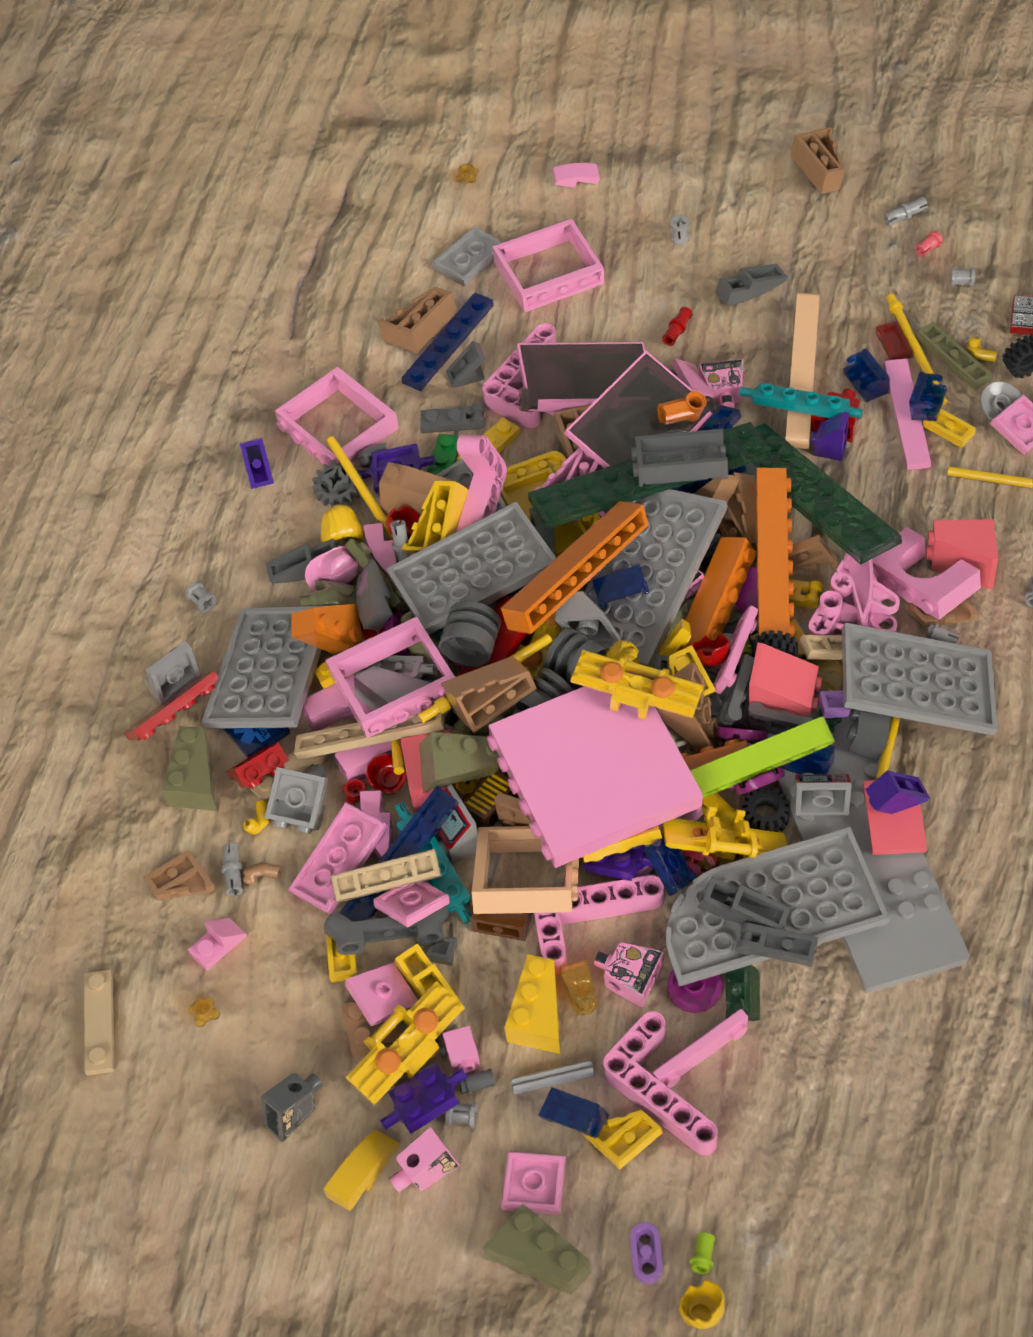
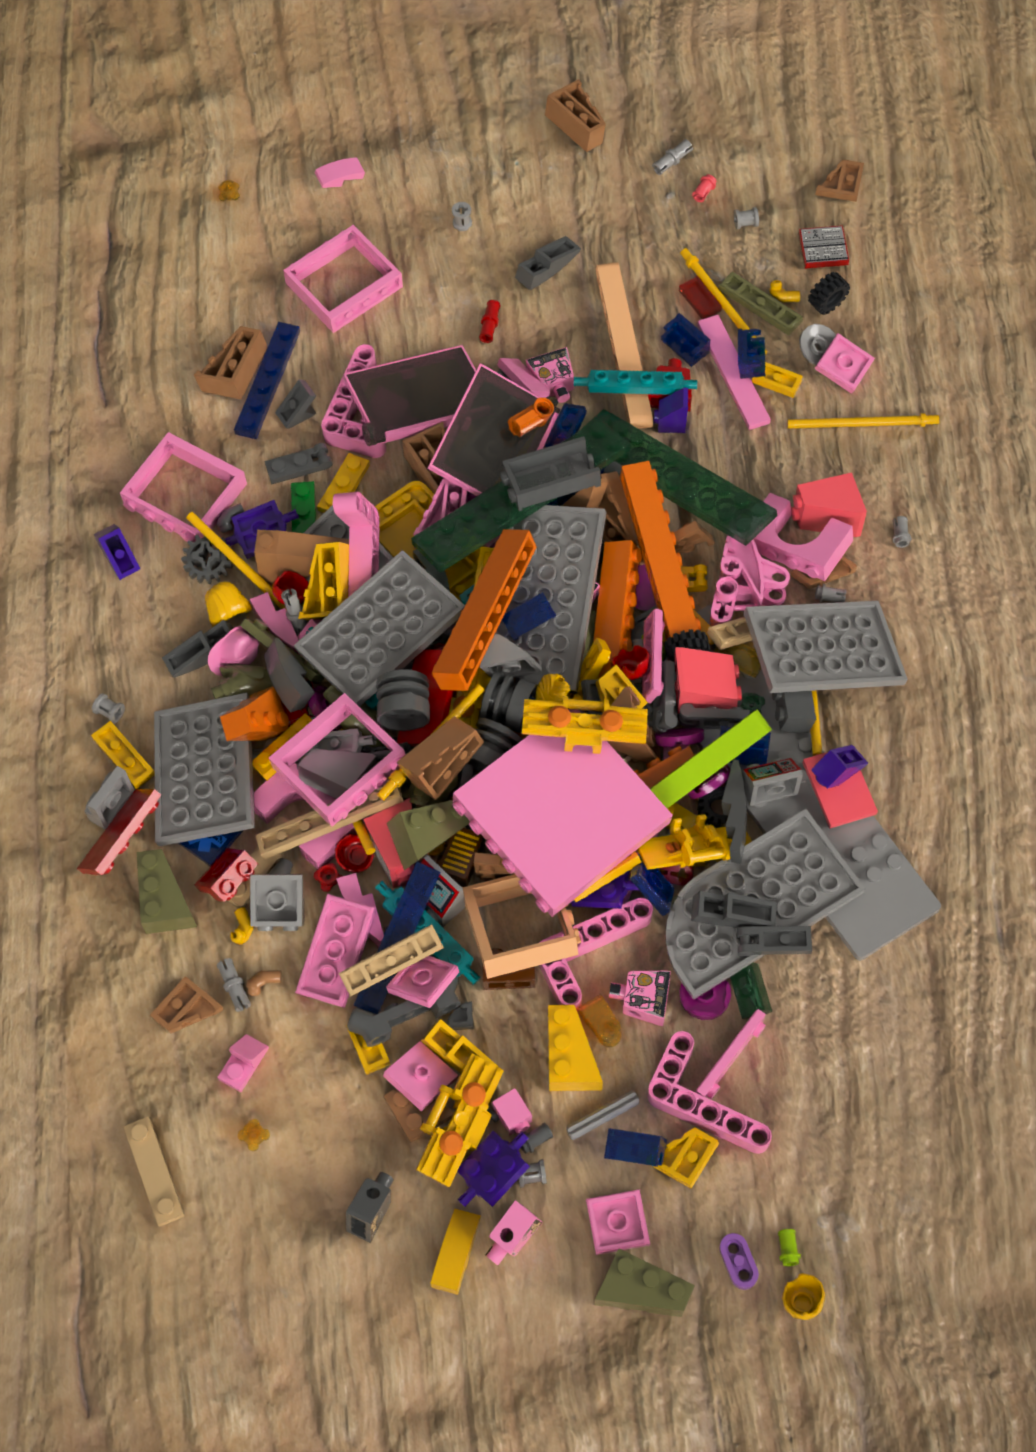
camera: 20 degrees left, 10 degrees up
(201, 641) = (123, 754): none -> yellow plate
(467, 256) = (258, 282): light grey tile -> none
(776, 808) = (735, 808): none -> dark grey slope
(833, 704) = (757, 690): medium lavender plate -> none

